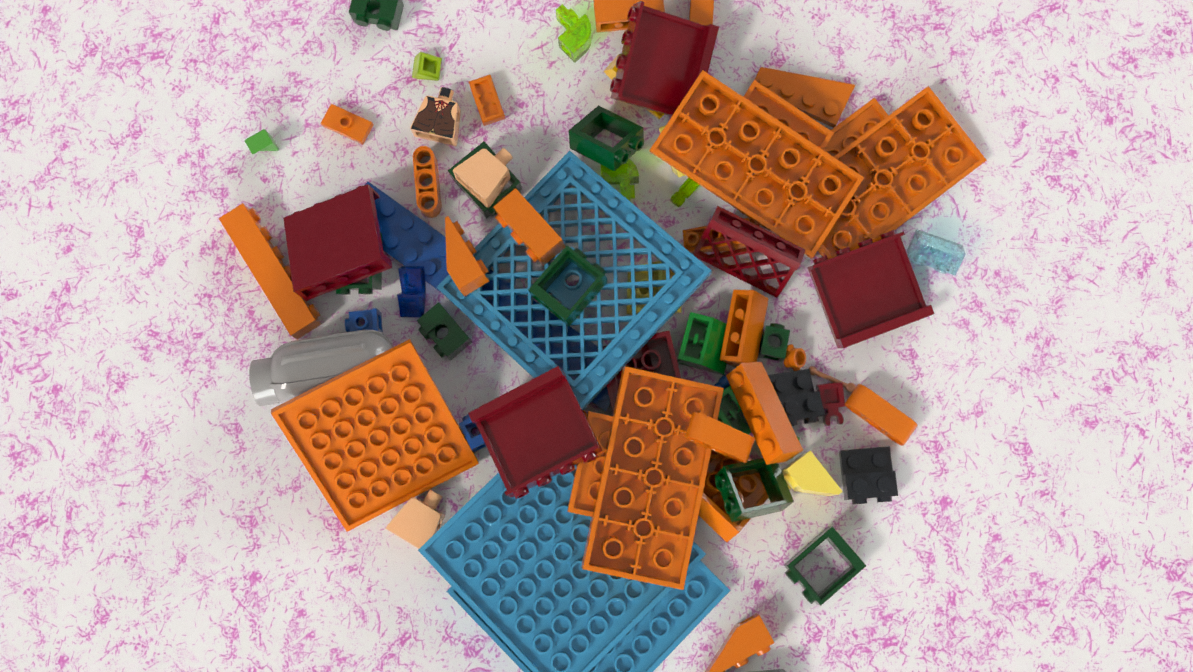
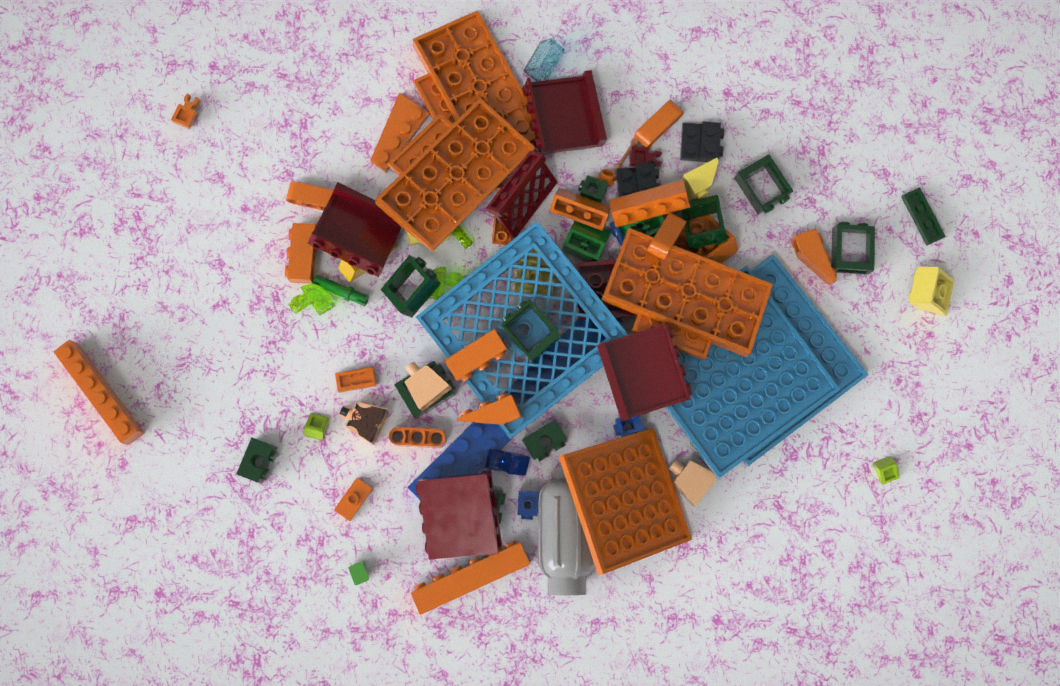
camera: 95 degrees left, 0 degrees up
(589, 72) = (347, 293): none -> green pin

